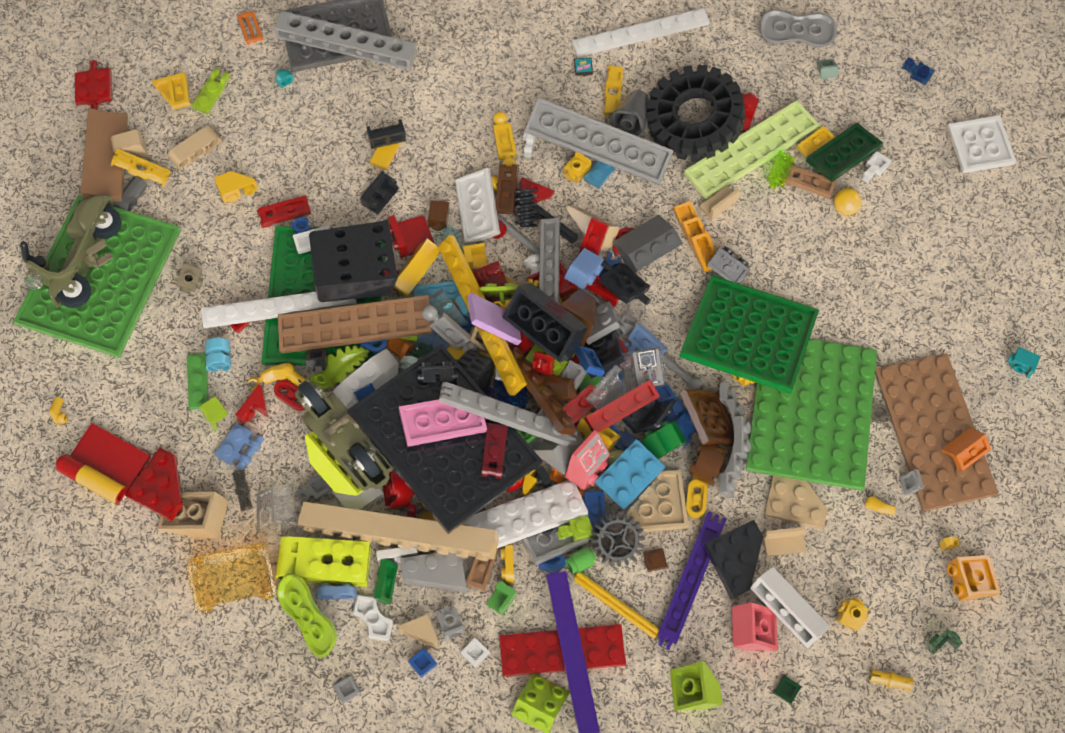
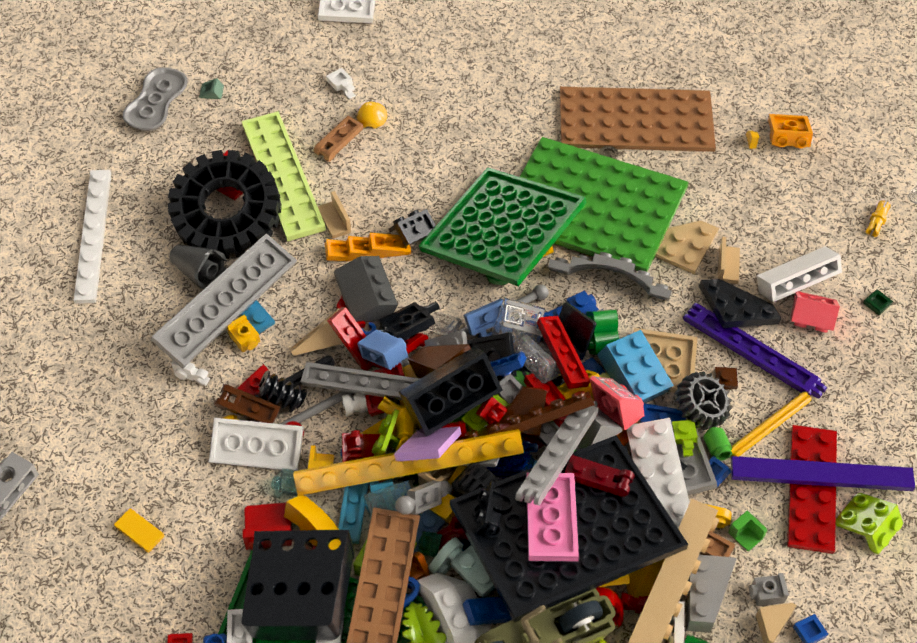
camera: 75 degrees left, 10 degrees down
(379, 193) = (196, 548): black hinge -> none
(386, 135) = (119, 519): black hinge -> none
(438, 215) = (252, 488): reddish brown brick -> none
(475, 652) = (805, 573): white plate -> none
(504, 139) = (177, 398): yellow plate -> none
(583, 66) = (112, 299): tile -> none
(614, 81) = (147, 272): yellow piece -> none
(695, 687) = (871, 376): lime slope -> none
(696, 499) = (667, 322): yellow plate -> none
(708, 463) = (636, 298): reddish brown brick -> none
(709, 417) = (589, 283): reddish brown plate -> none
(780, 170) = (319, 155): clear neon green hinge -> none
(815, 141) = (296, 121): yellow plate -> none
(844, 152) = (318, 100): dark green plate -> none
(852, 613) = (813, 227): yellow brick -> none
(879, 506) = (704, 180): yellow arm -> none
(912, 482) = (687, 148): light grey tile -> none
(919, 73) = (247, 21): clear blue plate -> none
(938, 641) = (847, 169): clear green bracket -> none
(967, 448) = (664, 95): orange panel -> none
(1024, 361) = (586, 34): teal brick -> none

